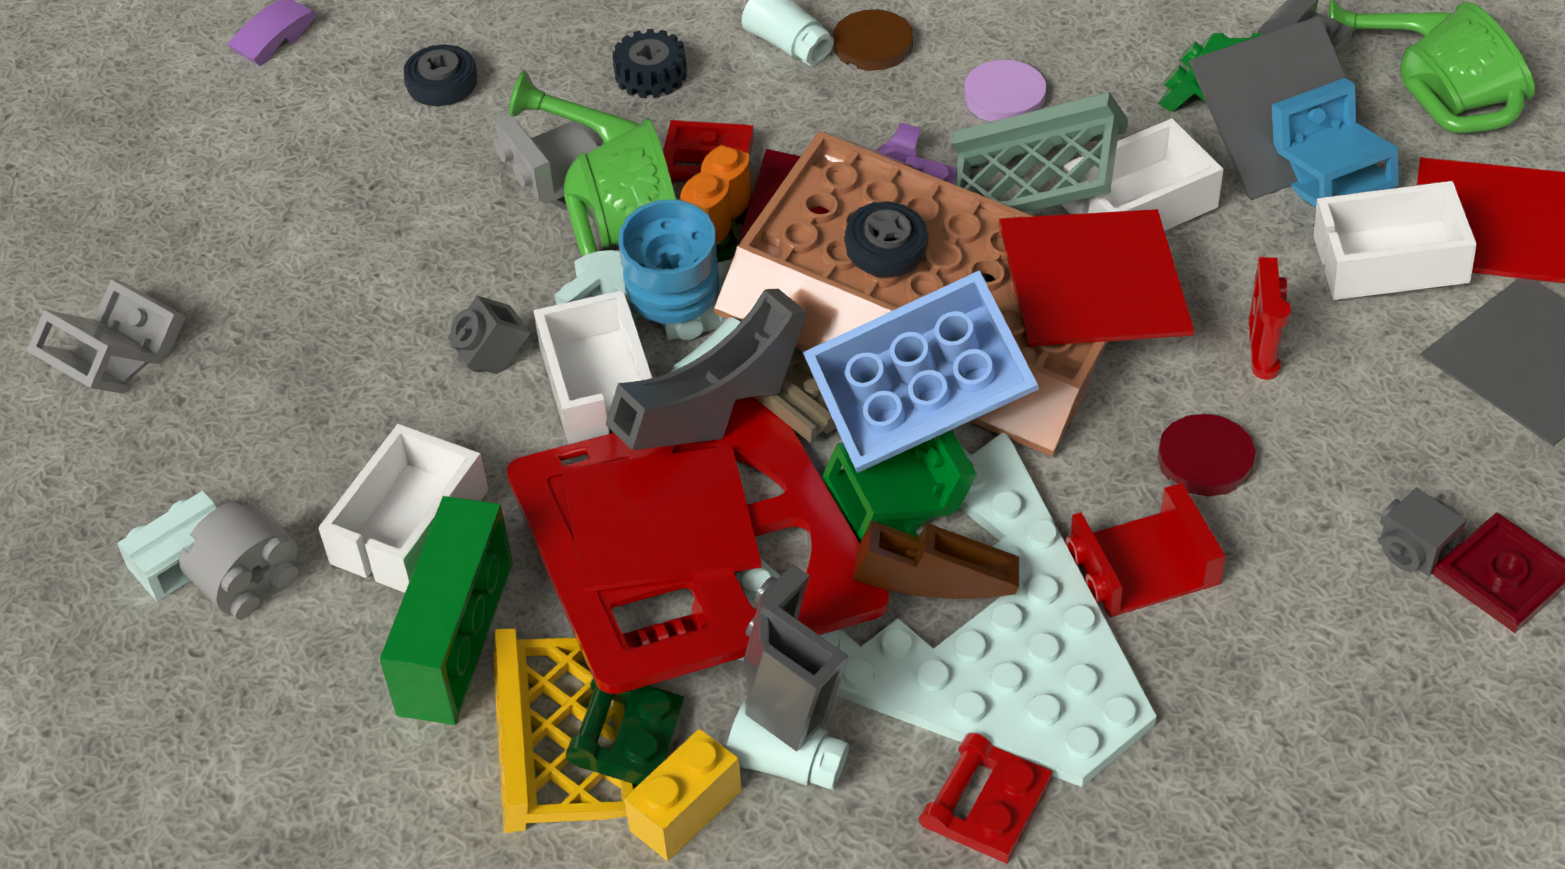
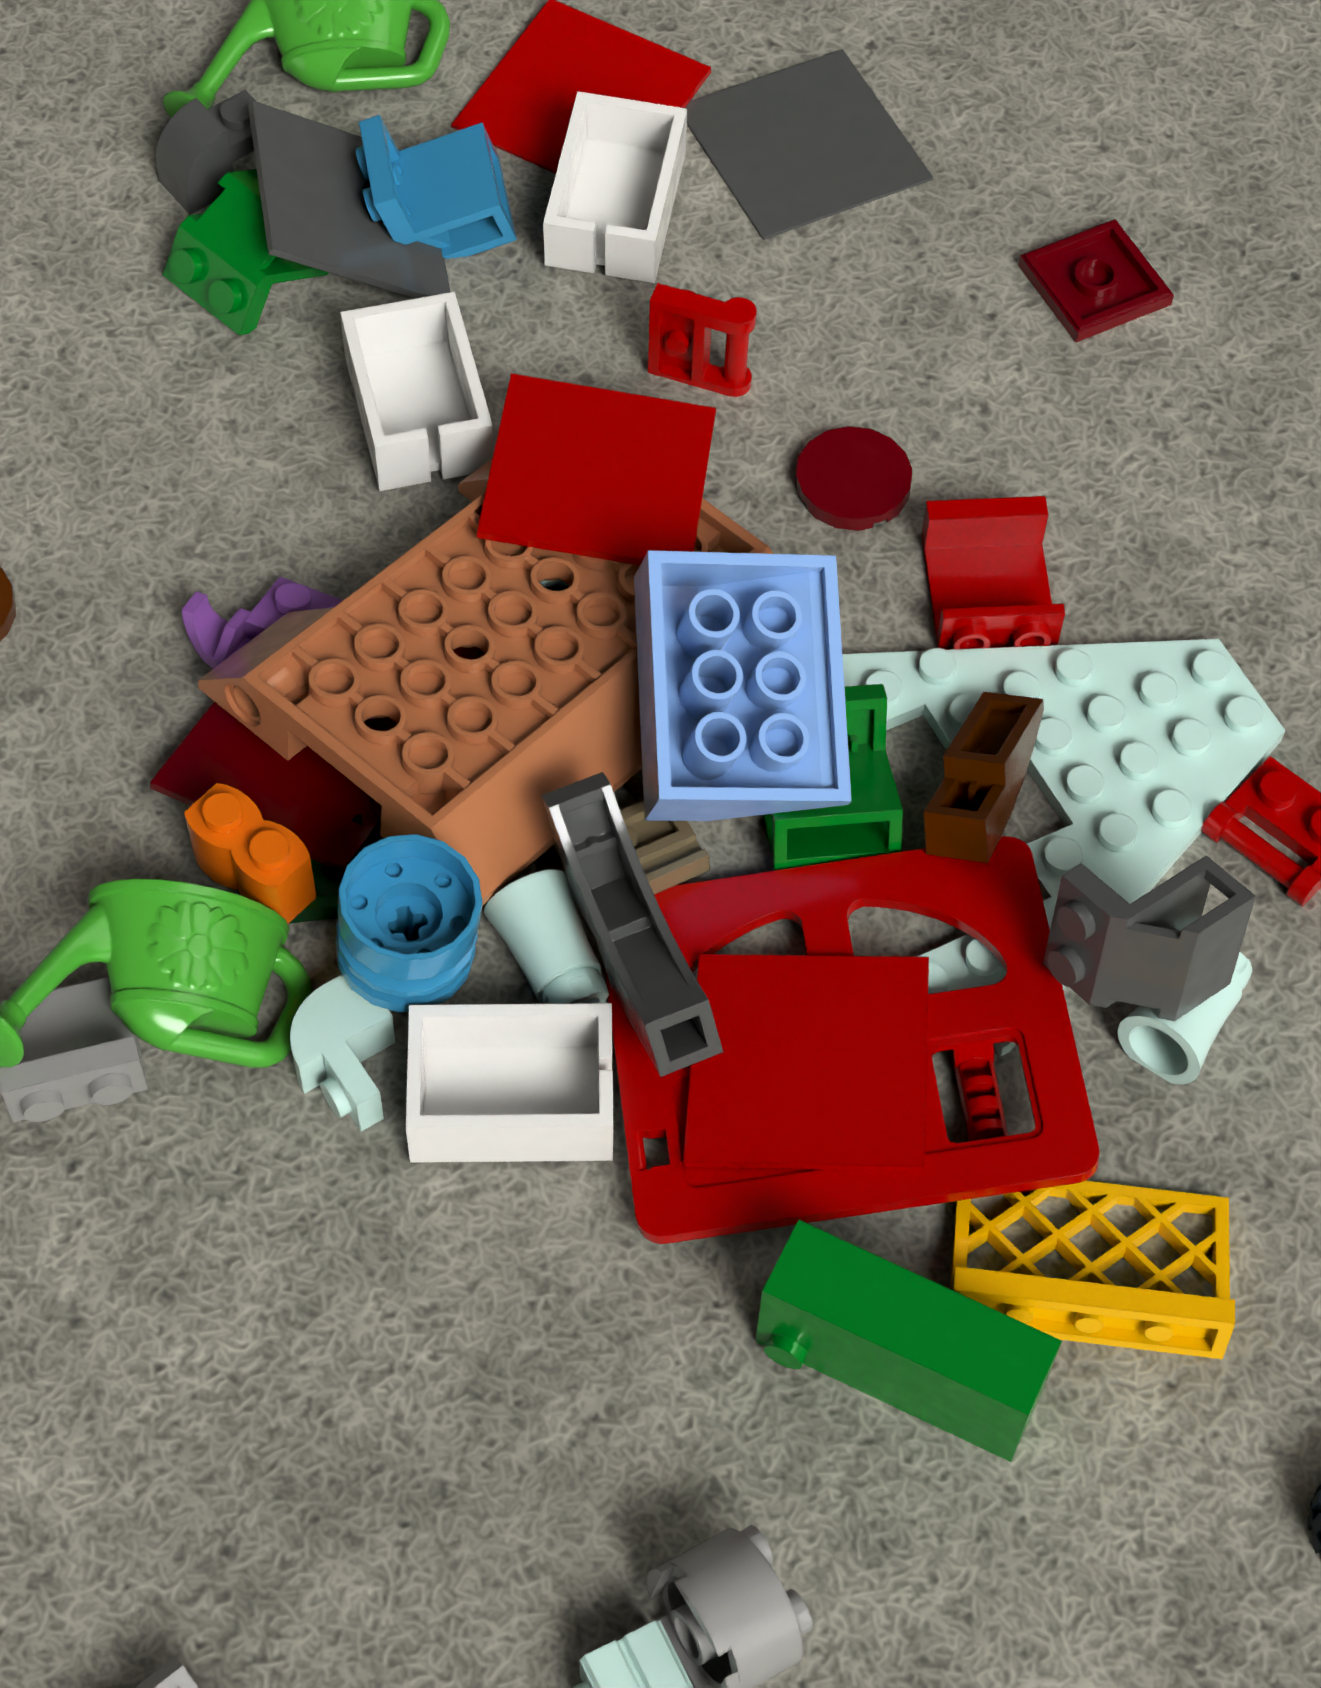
camera: 80 degrees left, 10 degrees up
(393, 502) = (696, 1376): white piece -> none
(487, 335) = (393, 1214): dark grey brick -> none
(641, 738) = (1137, 1182): dark green plate -> none
(683, 794) = (1238, 1130): yellow piece -> none
(695, 140) = (95, 847): red plate -> none
(886, 239) = (468, 650): black wheel -> none
(1004, 89) = (138, 487): lavender tile -> none
(1033, 136) = (312, 444): sand green fence -> none
(1419, 532) = (1038, 325): dark grey brick -> none

